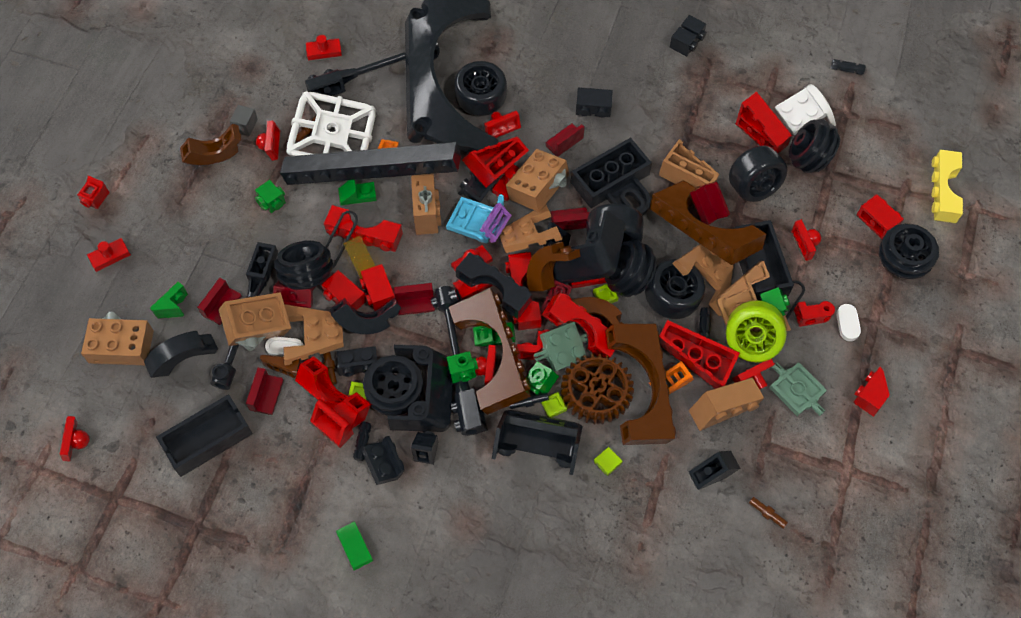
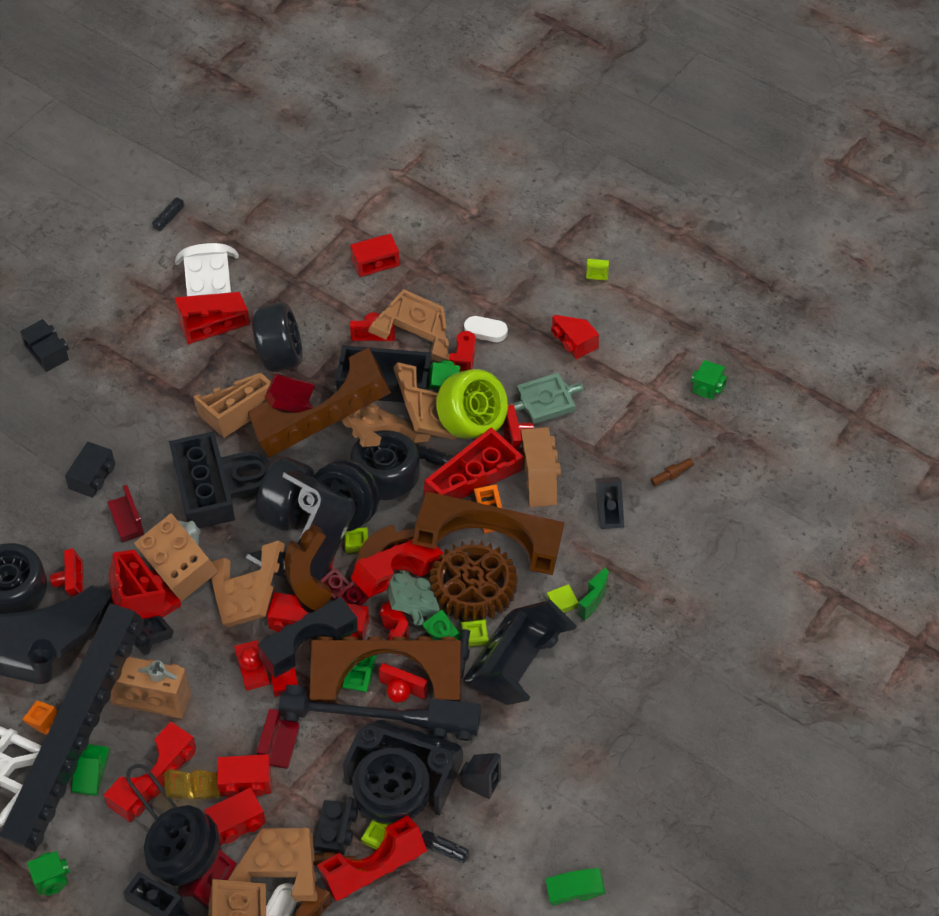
camera: 70 degrees left, 10 degrees down
(331, 423) = (413, 875): red tile -> none
(362, 322) = (291, 795): black arch -> none
(383, 461) = (481, 824): black bracket -> none
(462, 367) = (399, 703): green brick -> none
(470, 217) = (196, 641): medium azure piece -> none
(493, 220) = (217, 616): medium lavender tile -> none
(570, 218) = (240, 543): dark red panel -> none
(626, 485) = (596, 592): none -> green slope
(814, 146) = (267, 281): black wheel -> none
(831, 266) = (418, 317): none -> medium nougat wing
(877, 516) = (709, 380): none -> green brick
(903, 258) = (436, 243): black wheel -> none
(946, 204) = (385, 194): light yellow arch -> none
(953, 389) = (597, 269): none -> lime tile

